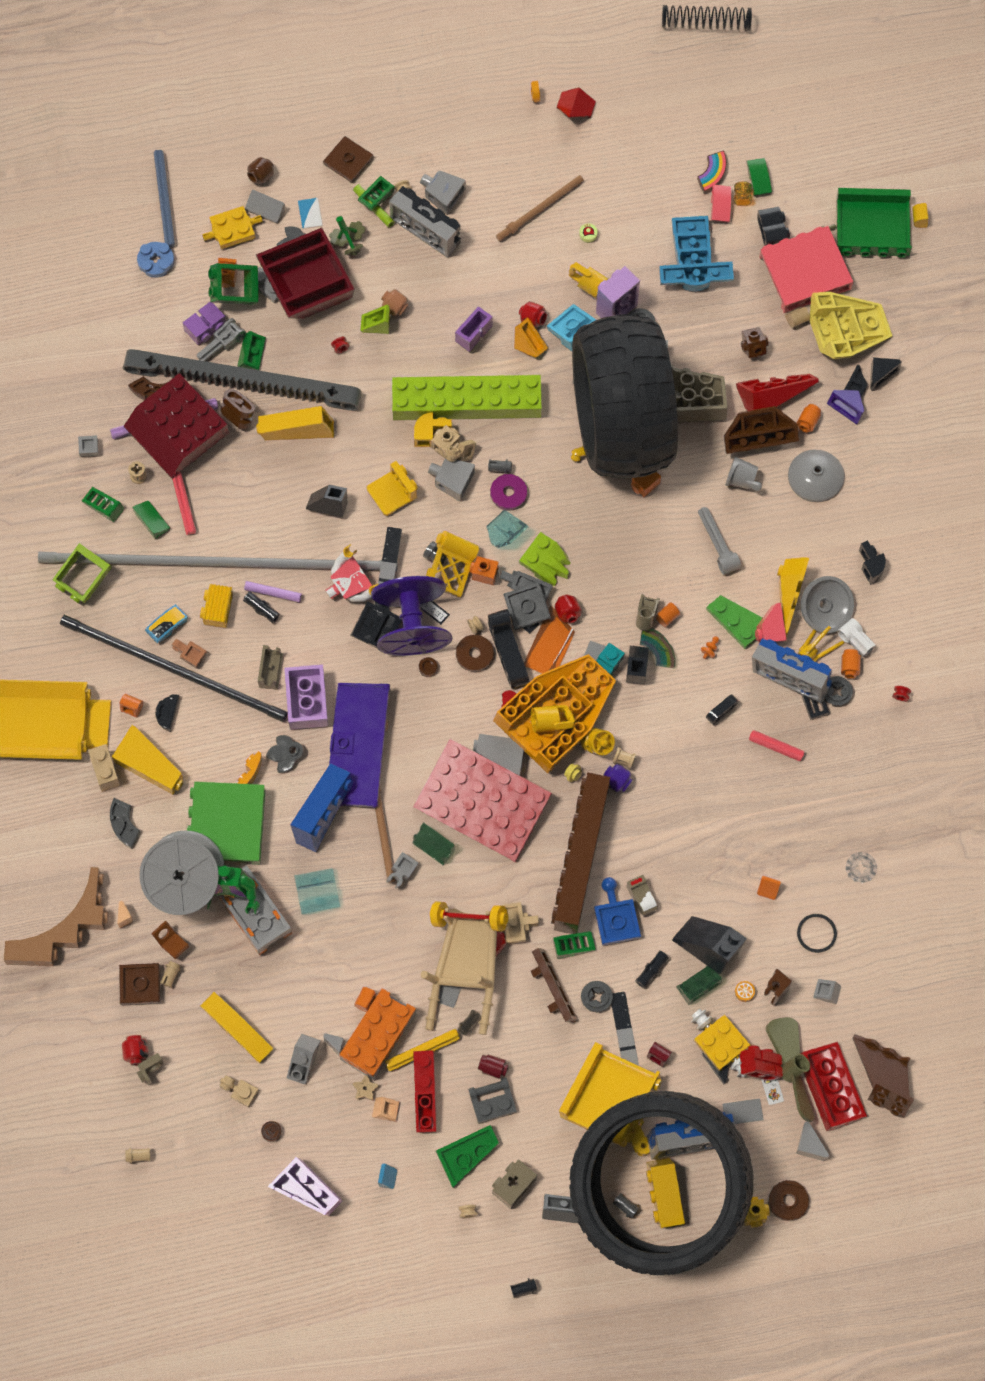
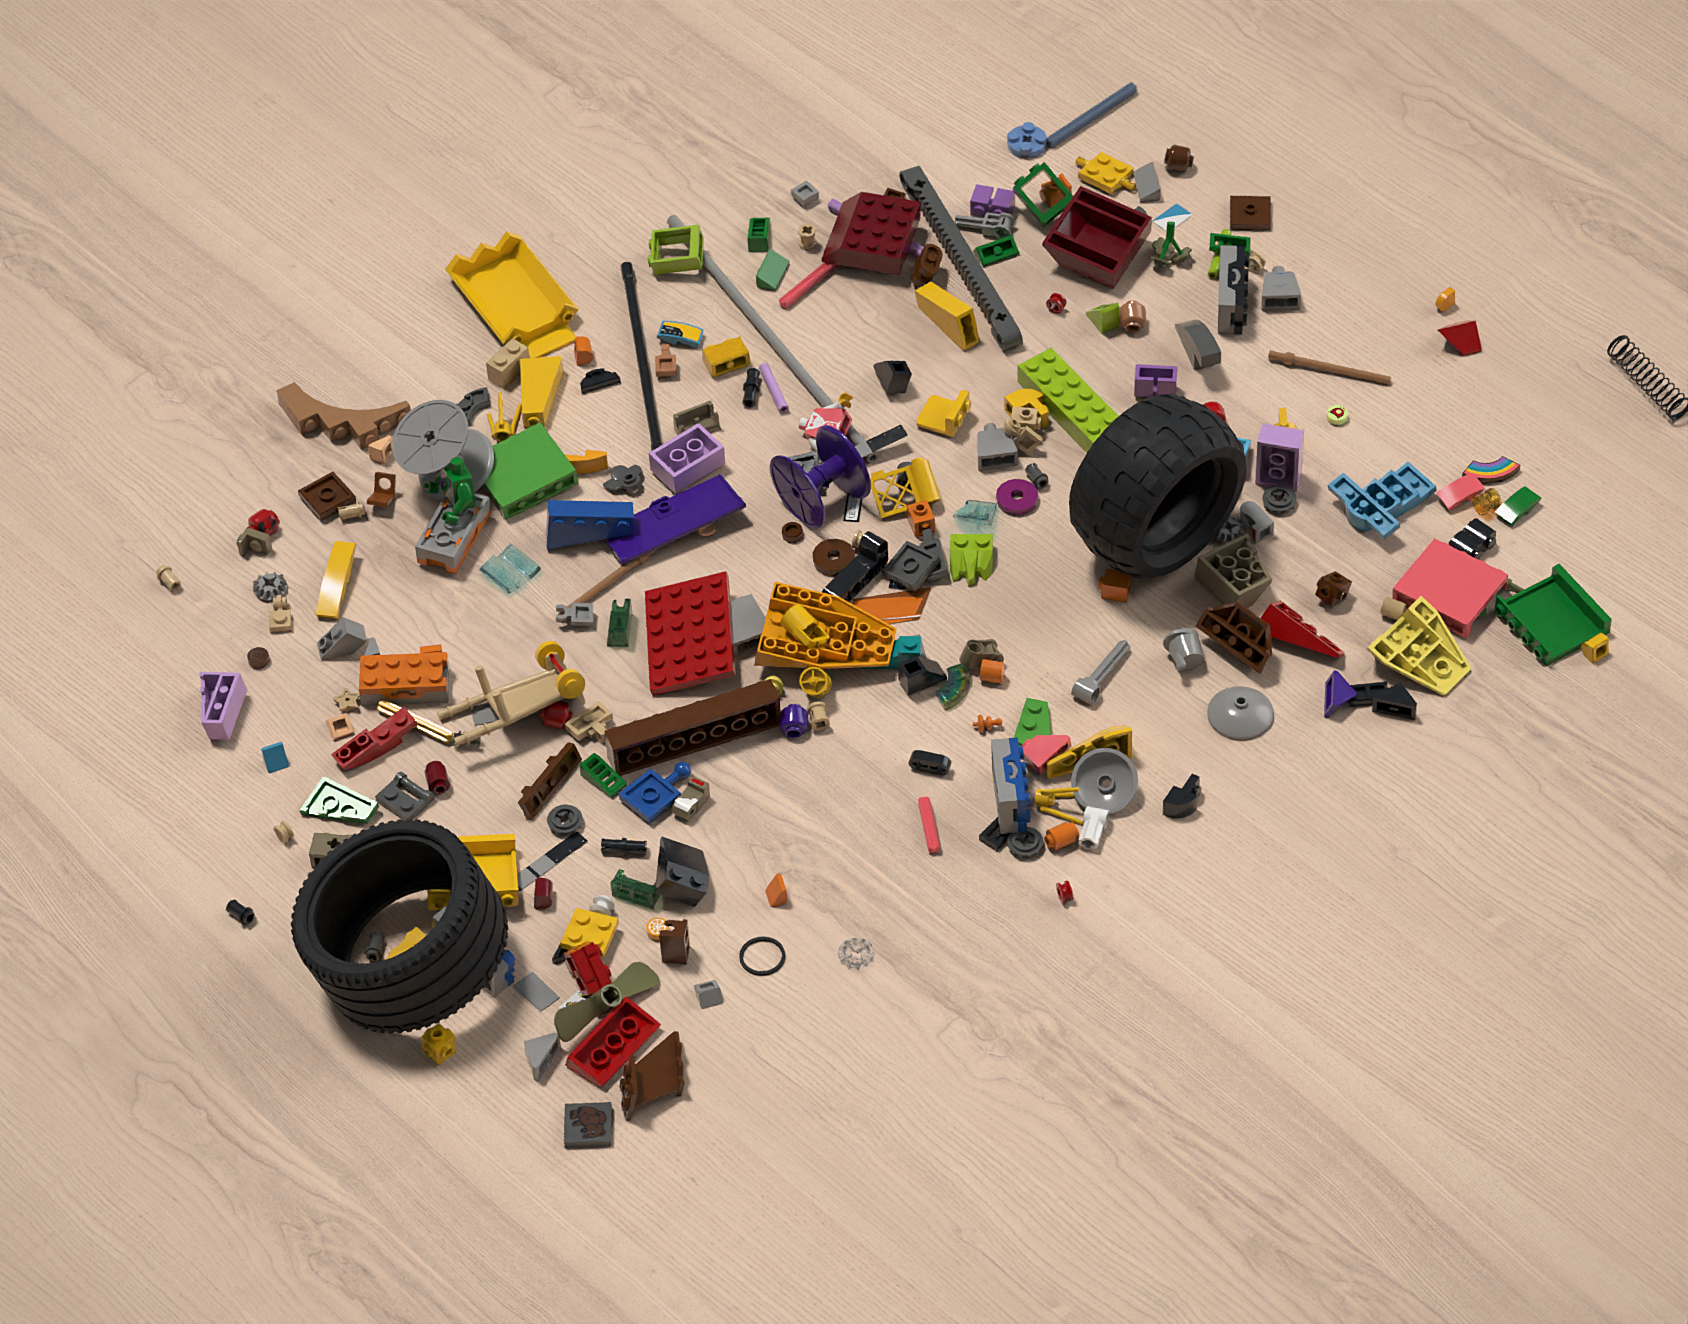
camera: 60 degrees right, 20 degrees down
(169, 810) = (502, 429): none -> yellow plant
(209, 1085) = (267, 592): none -> light grey gear
(458, 276) = (1199, 344): none -> dark grey slope
(568, 608) = (934, 596): red head -> none
(785, 1212) = (477, 1080): reddish brown tile -> none
(809, 418) = (1293, 673): orange brick -> none
(892, 1147) = (587, 1124): none -> tile

